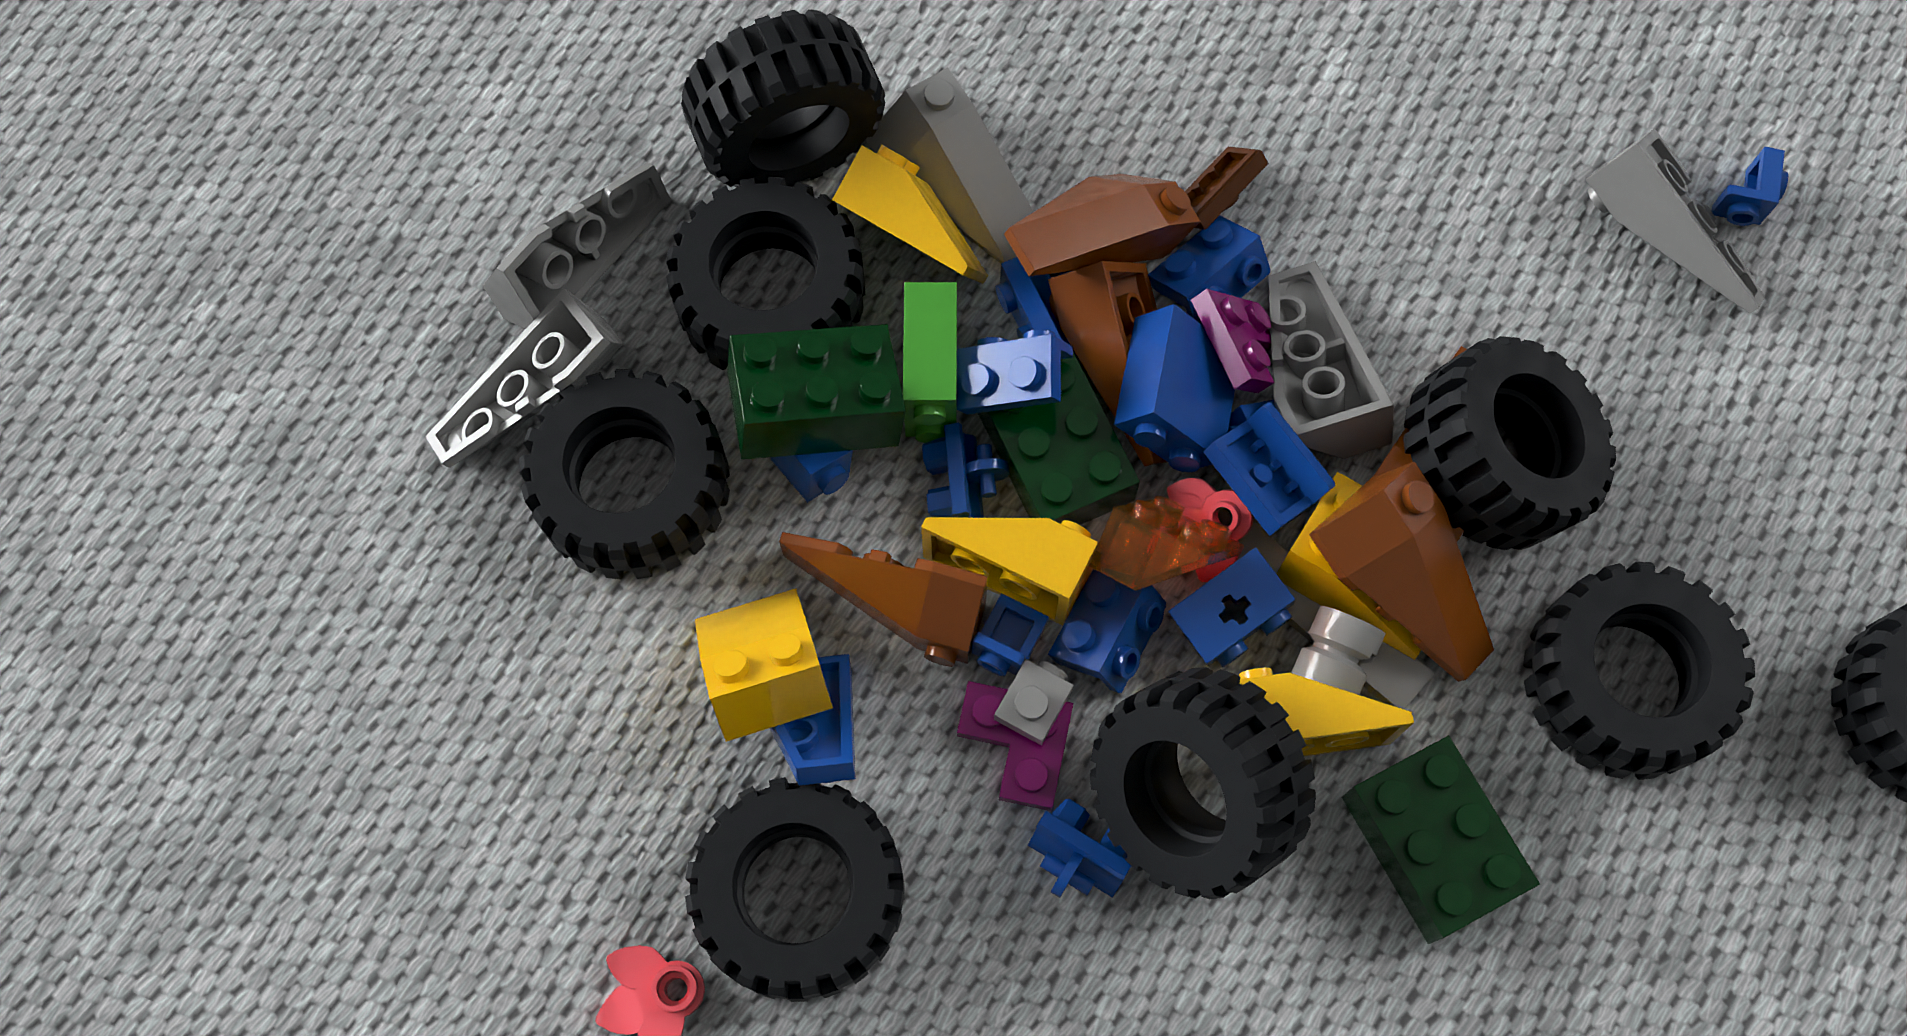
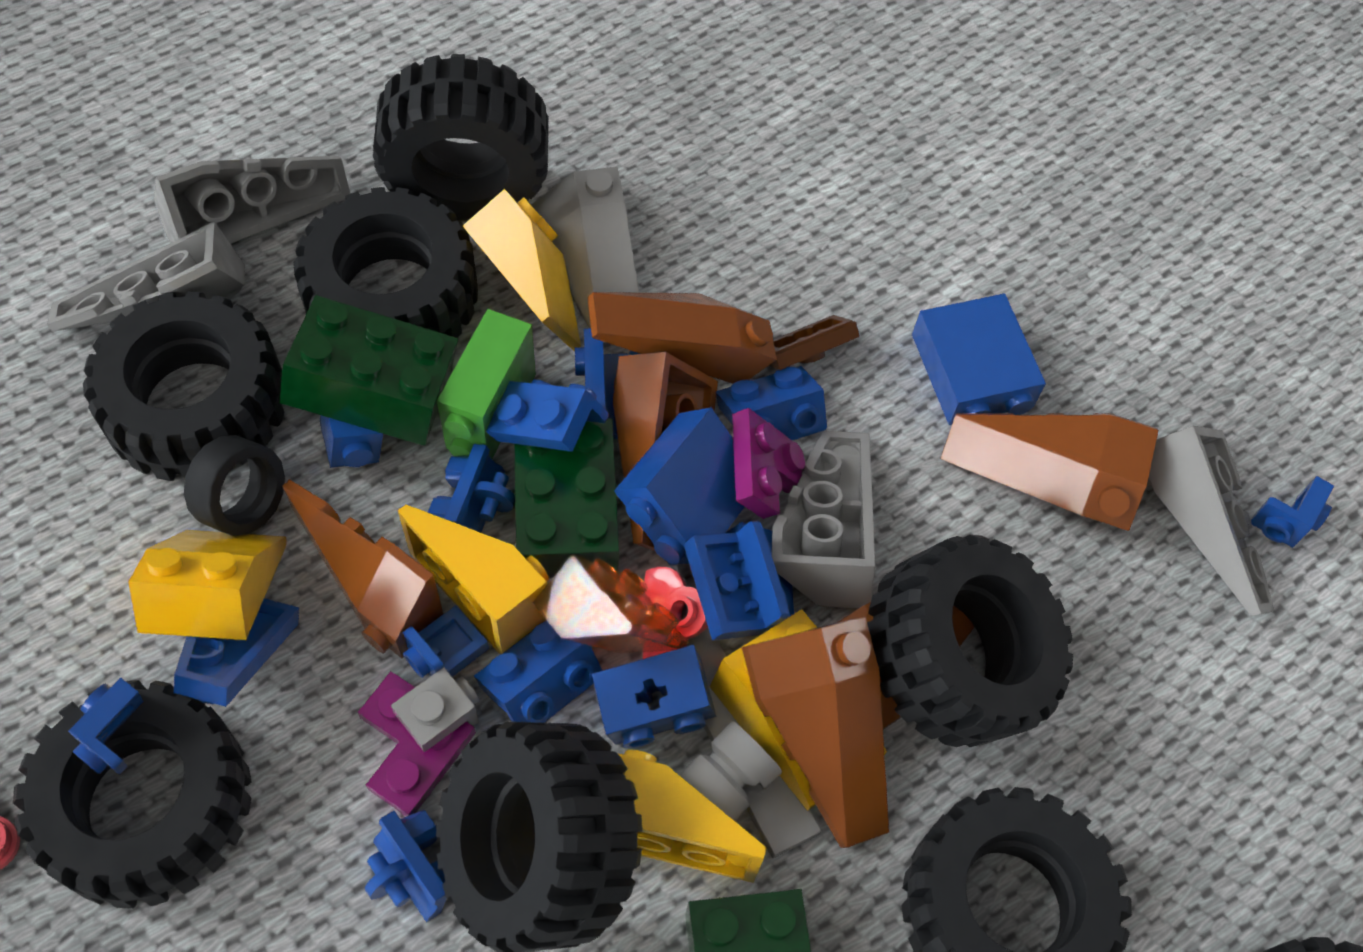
camera: 15 degrees right, 10 degrees down
(732, 559) = (209, 472): none -> black tyre
(754, 830) = (104, 713): none -> blue bracket
(1392, 143) = (978, 358): none -> blue brick
(1532, 220) = (1072, 461): none -> dark orange wedge

